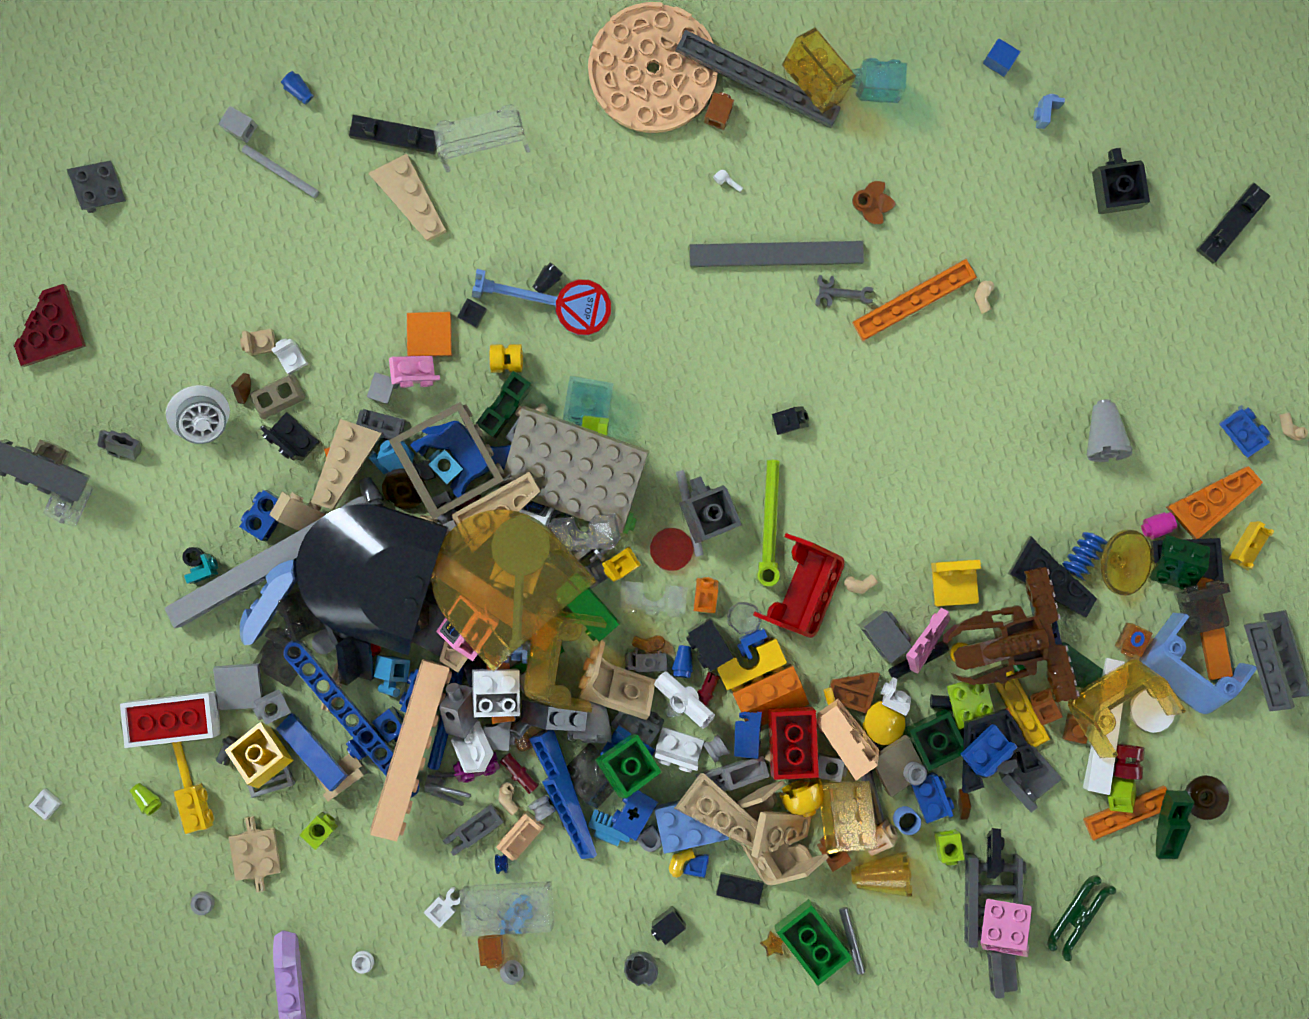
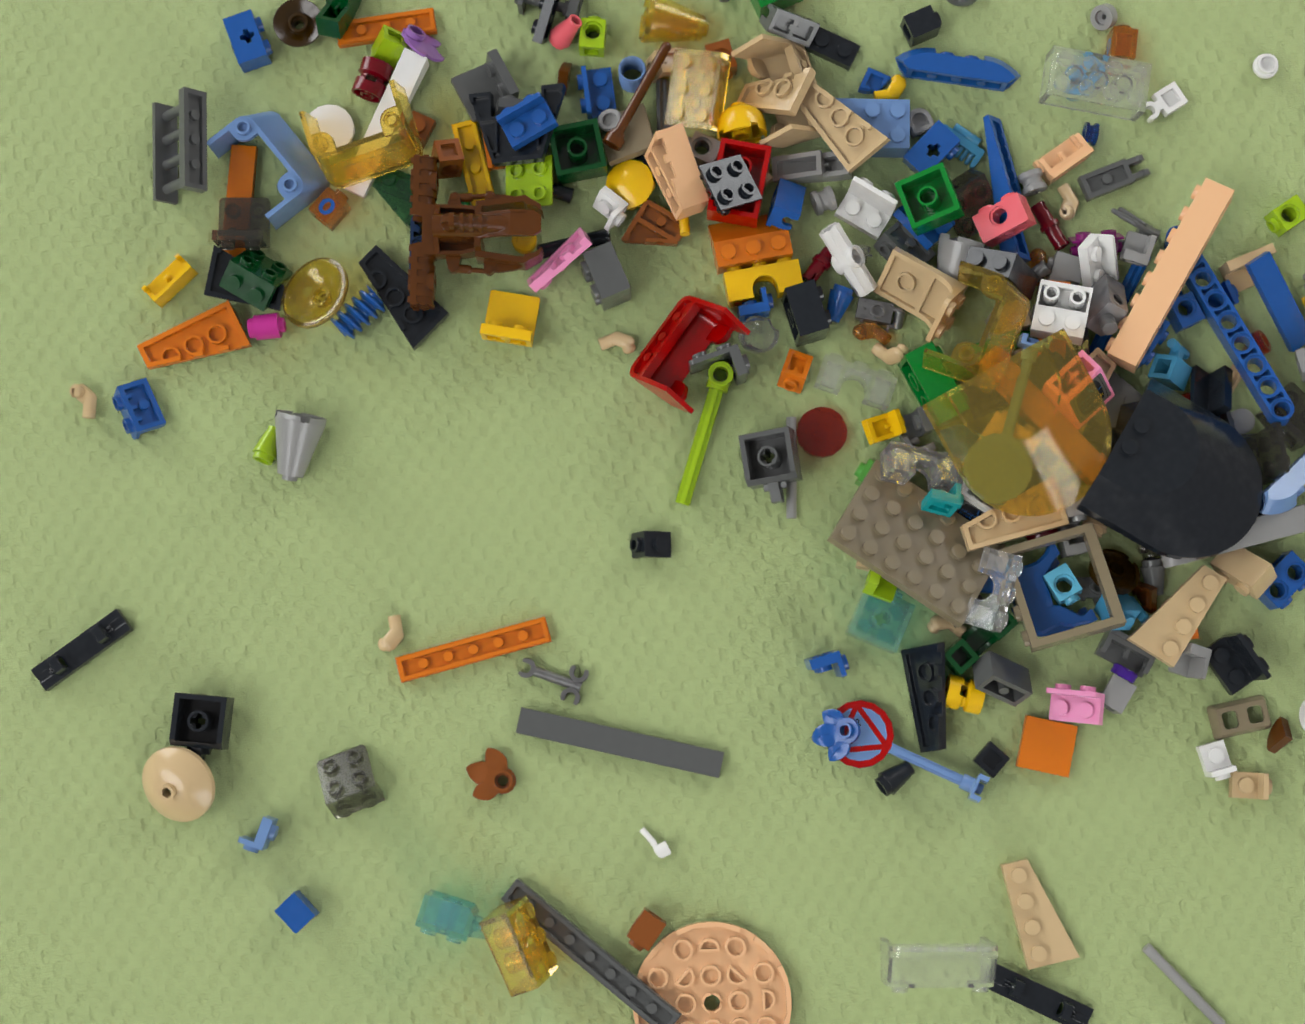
camera: 170 degrees left, 5 degrees down
(320, 713) = (1261, 341): none -> clear red tile
(323, 430) = (1193, 662): none -> light grey panel
(372, 476) = (1147, 596): none -> reddish brown tile
(379, 407) = (1124, 672): none -> dark purple tile
(441, 768) = (1137, 248): none -> light grey panel
(478, 376) = (1002, 678): none -> dark grey brick
(498, 461) = (992, 611): none -> clear arch
(538, 358) = (926, 687): none -> black wing
(549, 770) = (1018, 219): none -> coral brick
(559, 506) = (943, 503): none -> teal bracket
(605, 301) = (832, 734): none -> blue plate
(617, 894) = (957, 70): none -> blue brick
(628, 355) = (823, 662): none -> blue bracket
(629, 626) = (892, 355): none -> tan arm
(755, 586) = (727, 353): none -> dark grey bracket
(782, 894) = (789, 25): none -> dark grey hinge
(802, 736) = (729, 183): none -> hinge
(907, 759) = (615, 137): none -> reddish brown piece
(975, 842) = (564, 33): none -> coral cone
(987, 168) = (349, 782): none -> clear smoke bracket
(1094, 803) = (422, 43): none -> medium lavender plate
(1125, 133) = (187, 779): none -> tan dish
(1131, 423) = (266, 447): none -> lime cone
(1254, 777) = (245, 27): none -> blue brick

